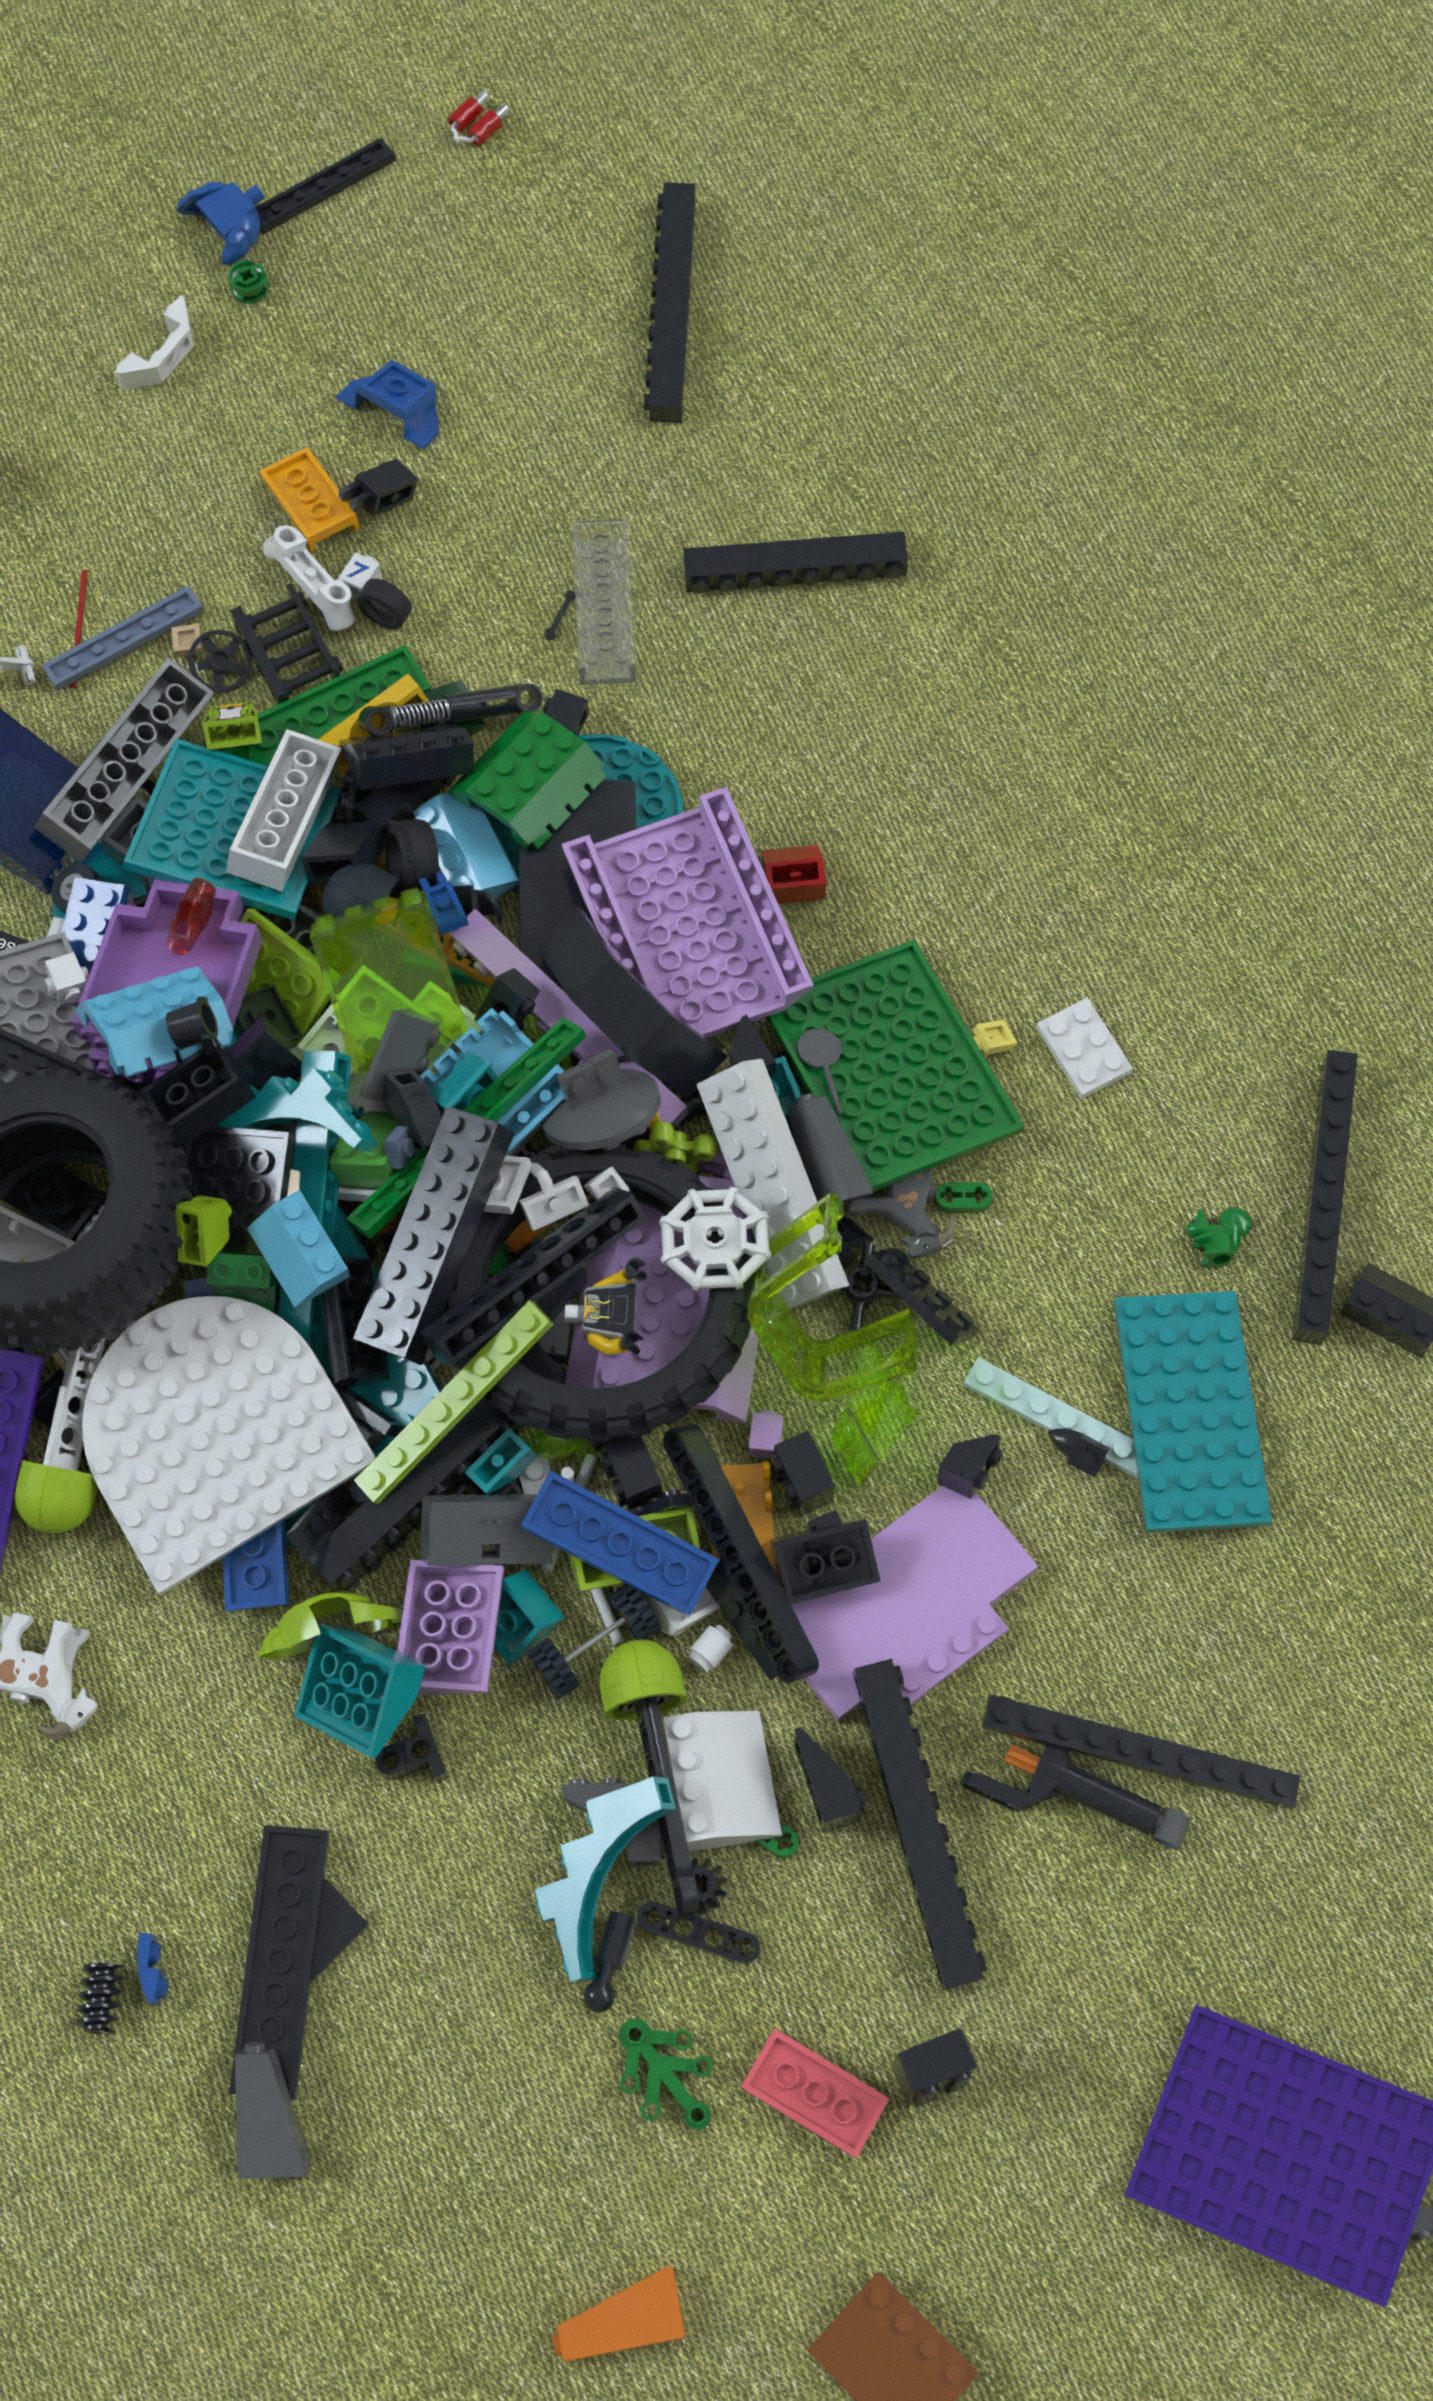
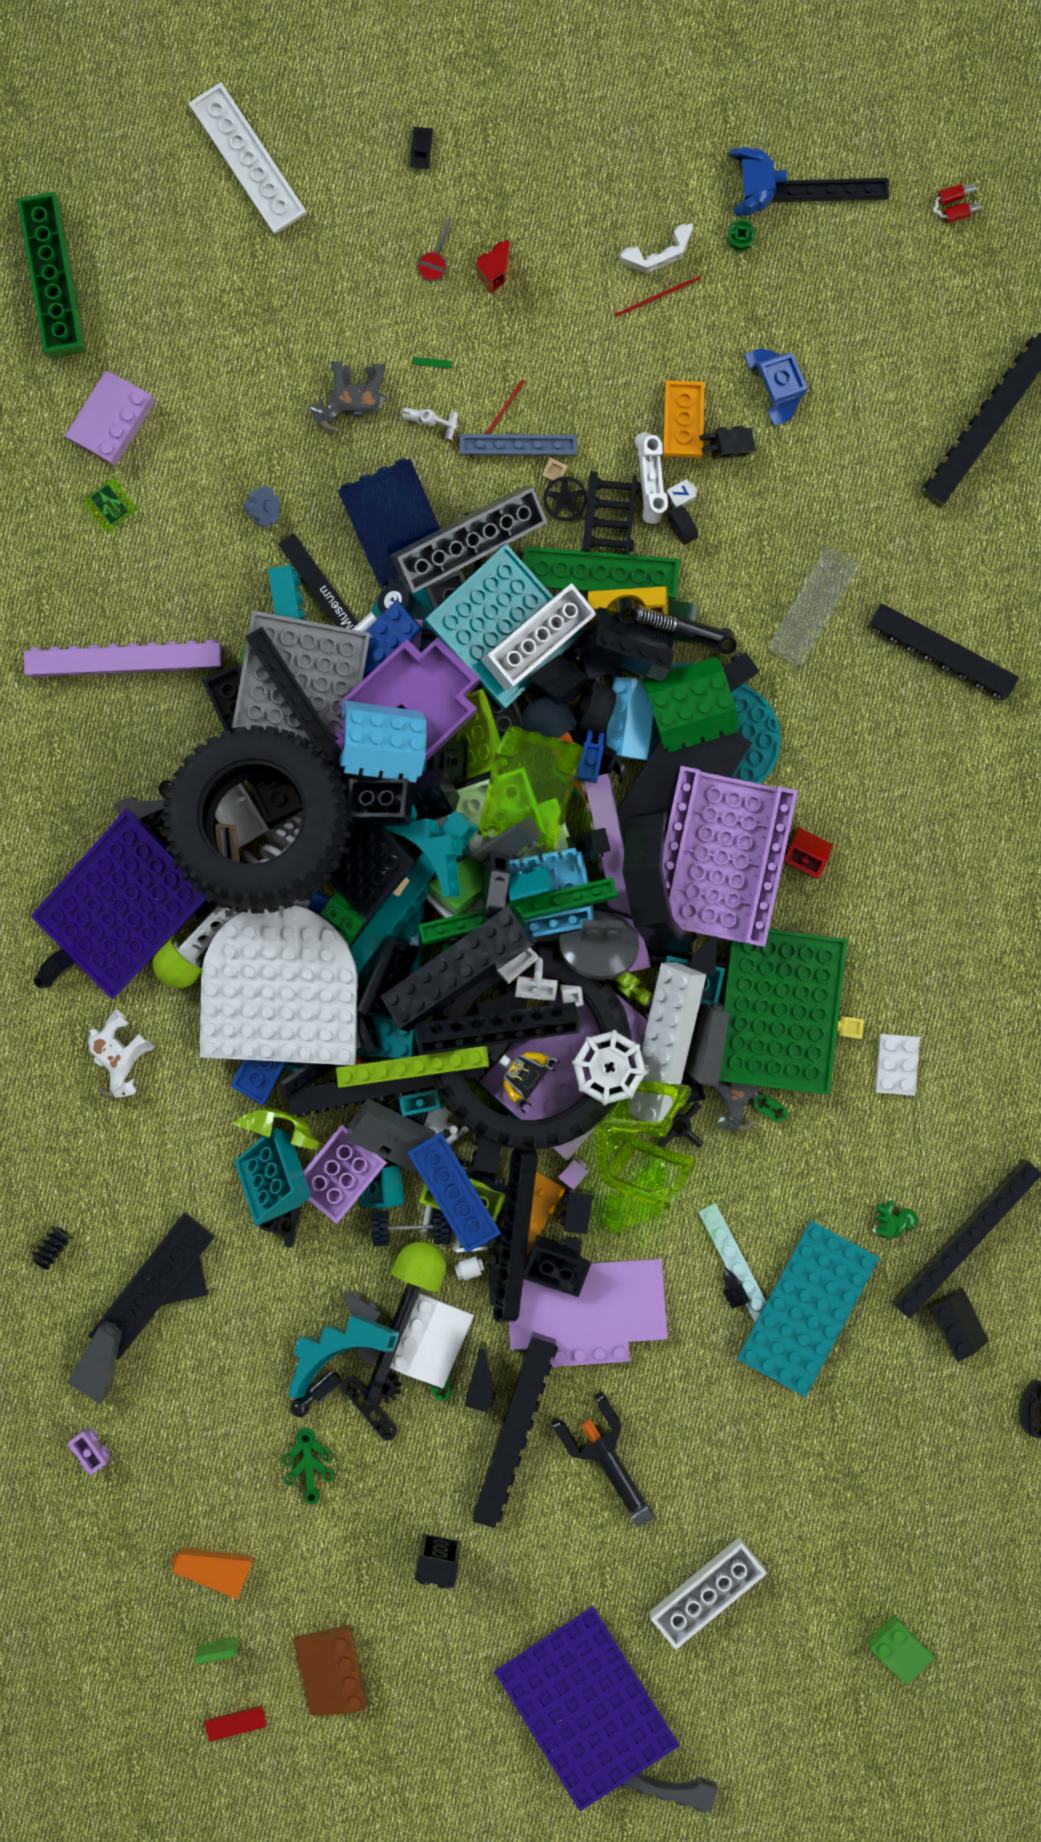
camera: 35 degrees right, 20 degrees up
(66, 978) = (352, 670): white brick -> none
(152, 1980) = (82, 1253): blue slope -> none
(191, 396) = (658, 296): none -> red piece
(191, 916) = (442, 678): clear red piece -> none
(193, 1026) = (397, 769): black piece -> none
(206, 1230) = (339, 885): lime torso -> none
(231, 726) = (544, 554): lime torso -> none
(298, 1249) = (379, 931): medium azure slope -> none
(321, 2257) = (89, 1450): none -> lavender brick
(399, 1147) = (472, 902): sand blue plate -> none
(550, 632) = (769, 603): black hinge -> none
(815, 2093) = (375, 1524): coral plate -> none
(821, 1050) = (747, 979): dark grey piece -> none
(917, 1291) = (707, 1153): black plate -> none
(968, 1464) = (668, 1260): black slope -> none
(1141, 1751) = (652, 1468): black plate -> none
(1335, 1874) = (707, 1593): none -> white brick

